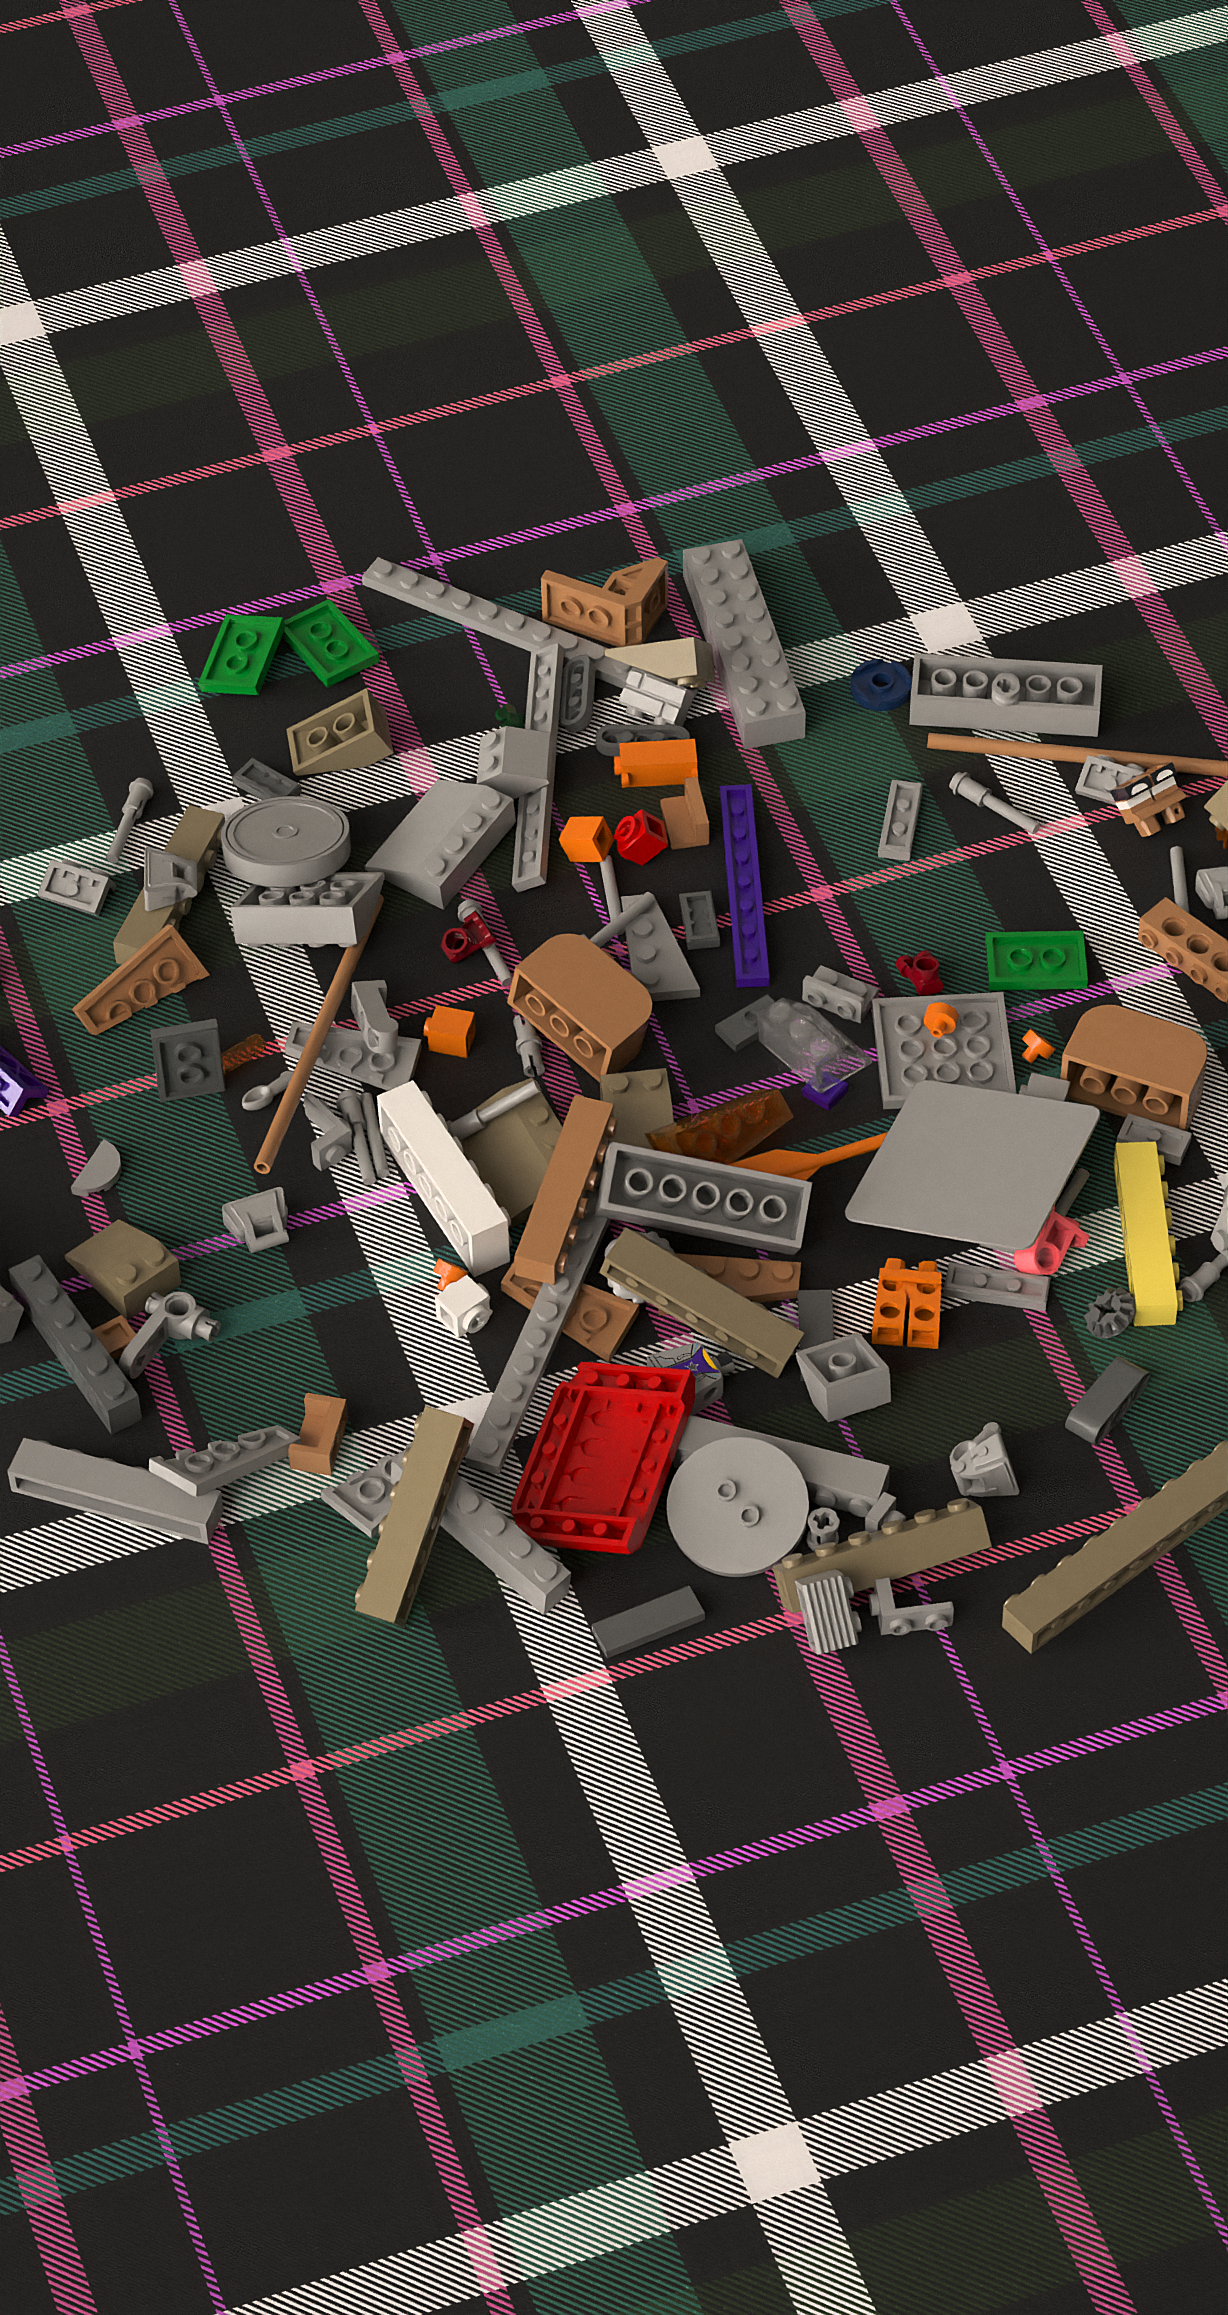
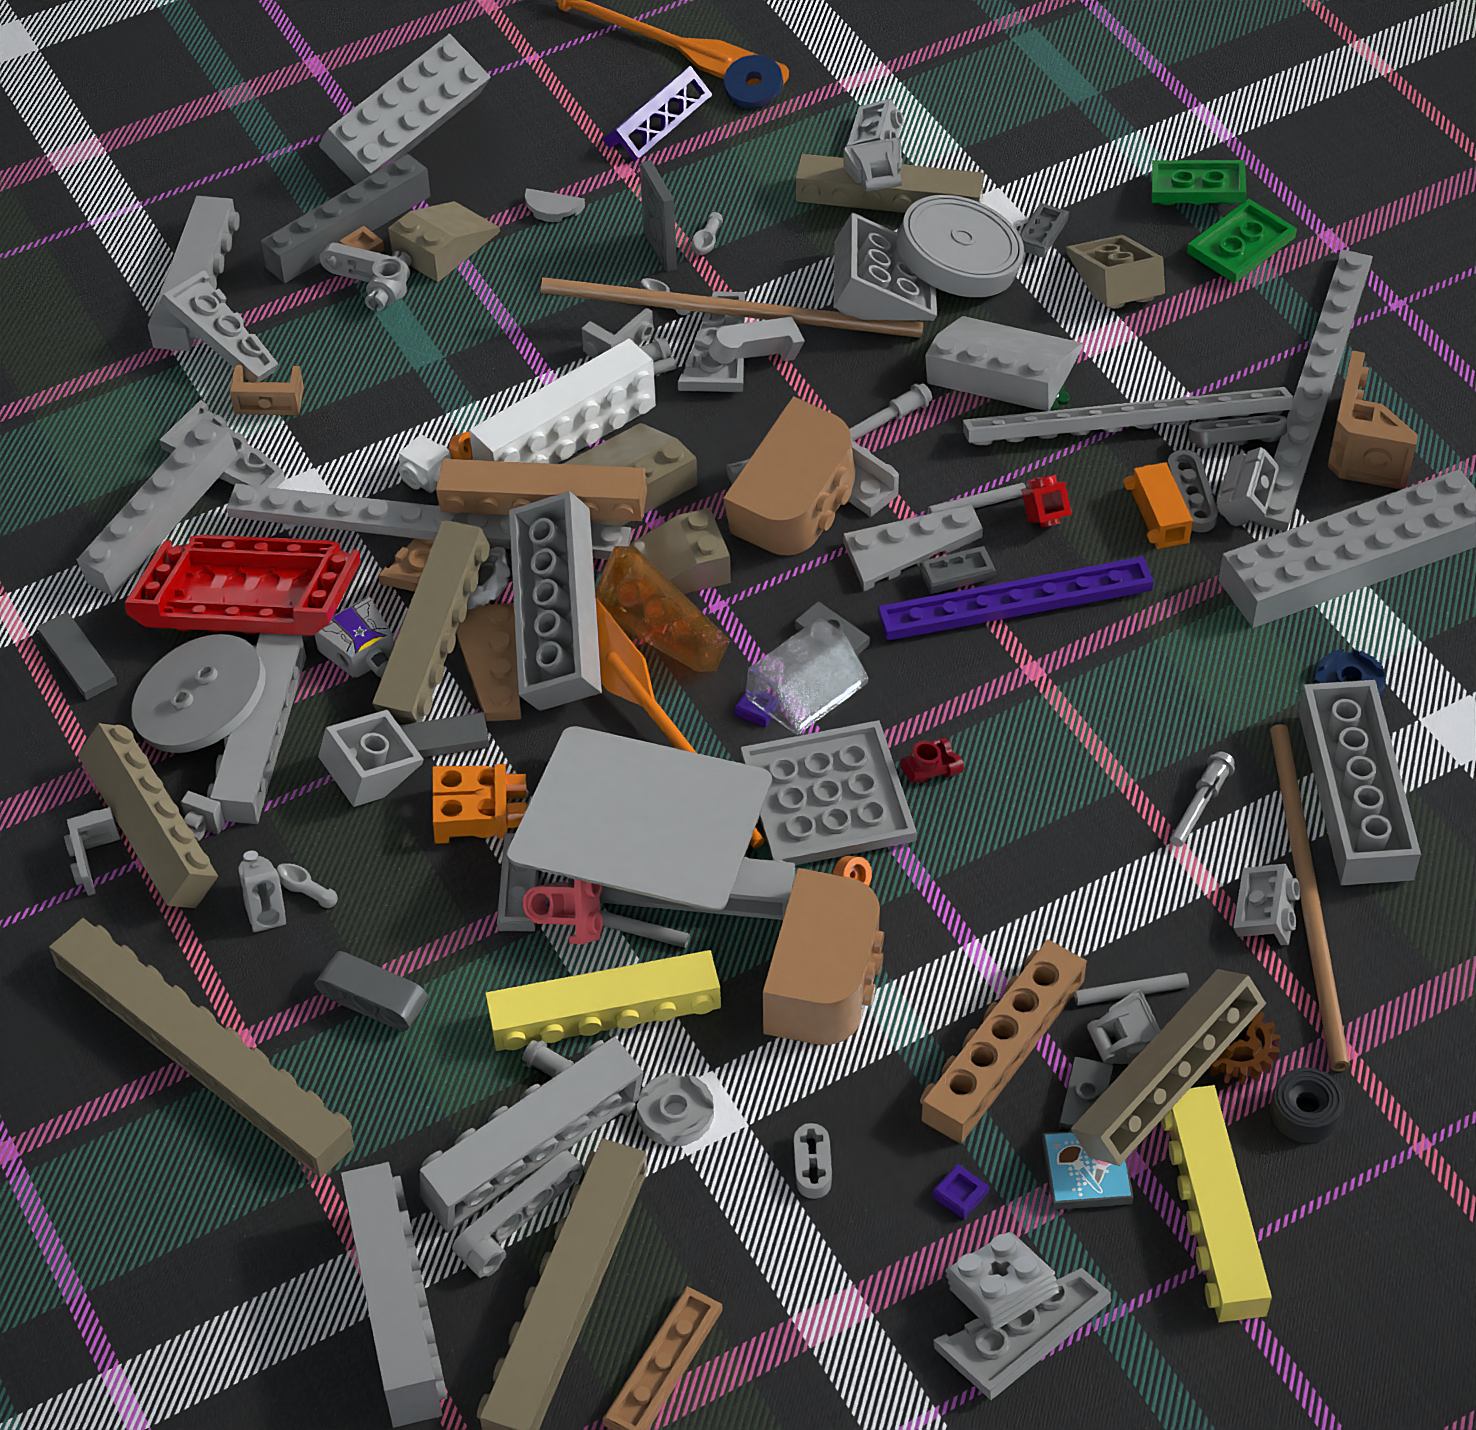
camera: 80 degrees right, 0 degrees up
(140, 791) = (1000, 149): light grey pin -> none
(148, 975) = (766, 184): medium nougat wing -> none
(242, 1052) = (702, 267): clear orange axle -> none
(257, 1217) = (506, 312): light grey piece -> none
(413, 1516) = (142, 442): dark tan brick -> none
(450, 1031) = (760, 403): orange brick -> none
(473, 934) = (876, 394): dark red plate -> none
(477, 1119) = (631, 424): light grey pin -> none
(509, 717) = (1186, 386): dark green plant -> none
(515, 760) = (1113, 385): light grey slope -> none
(586, 839) = (1033, 459): orange brick -> none
(623, 919) = (922, 499): light grey bar -> none
(679, 660) = (1275, 472): slope -> none
(686, 817) = (1100, 543): medium nougat panel -> none
(818, 1527) = (184, 773): light grey bush -> none
(828, 1611) = (71, 775): light grey brick -> none
(839, 994) = (887, 696): light grey bracket -> none
(900, 820) = (1154, 721): light grey tile -> none
(940, 1019) = (848, 772): orange tile -> none
(1003, 698) = (1341, 753): light grey bush -> none
(1036, 960) = (976, 861): green plate -> none
(1111, 1323) = (487, 978): dark grey gear -> none
(1148, 795) = (1243, 930): medium nougat hips -> none
(1170, 1141) = (741, 997): light grey plate -> none

